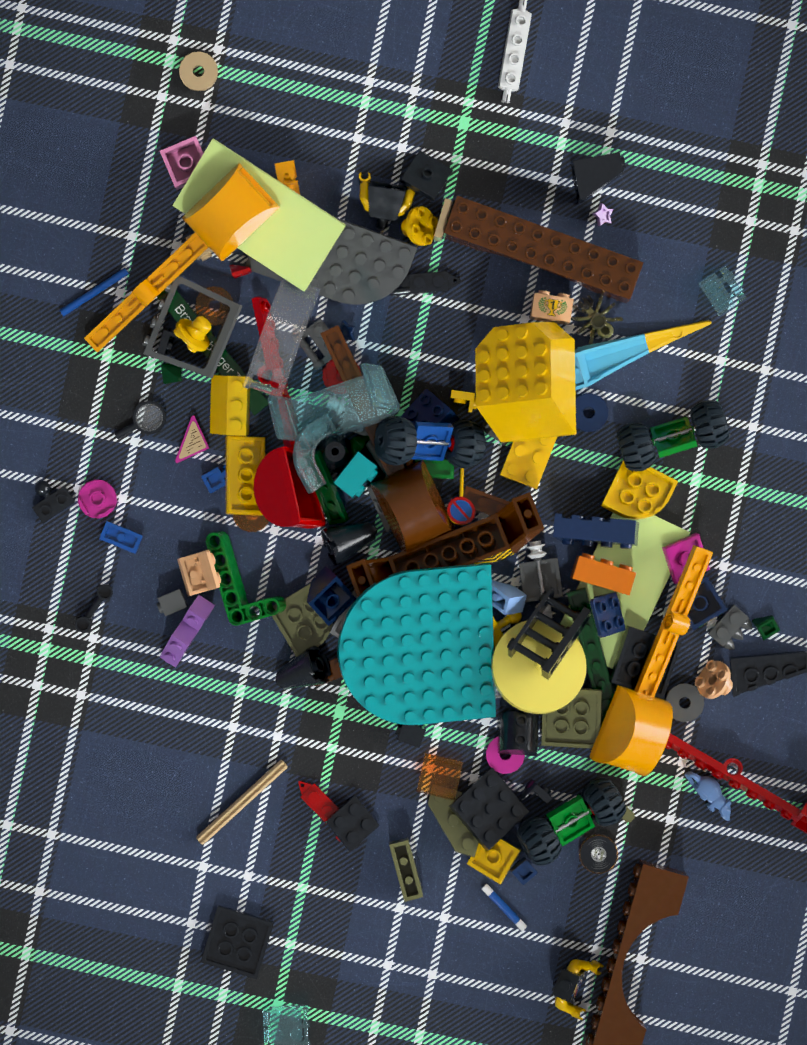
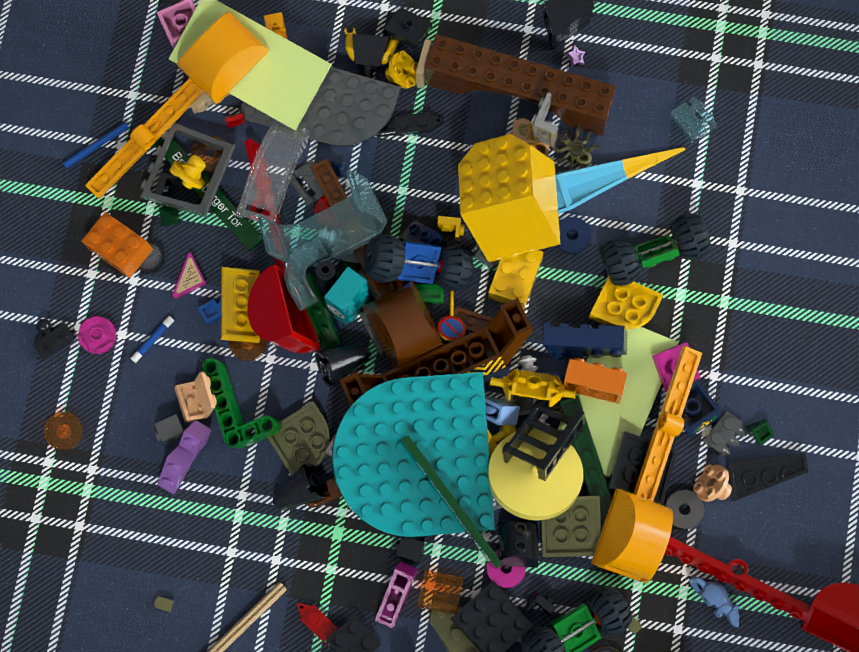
camera: 10 degrees right, 15 degrees down
(64, 598) = (63, 431): none -> clear orange tile
(83, 623) = (102, 423): black bar -> none
(118, 407) = (117, 245): none -> orange brick
(121, 537) = (119, 369): blue plate -> none
(153, 506) = (152, 339): none -> blue bar
(166, 776) = (164, 604): none -> olive piece
(229, 405) = (225, 240): yellow slope -> none
(329, 596) = (323, 413): dark blue slope -> none
(396, 776) = (396, 594): none -> magenta slope
(453, 693) = (450, 501): none -> dark green tile
(525, 576) = (546, 386): none -> yellow plate
(566, 313) = (544, 131): none -> light grey bracket
(607, 614) = (601, 419): dark blue bracket -> none

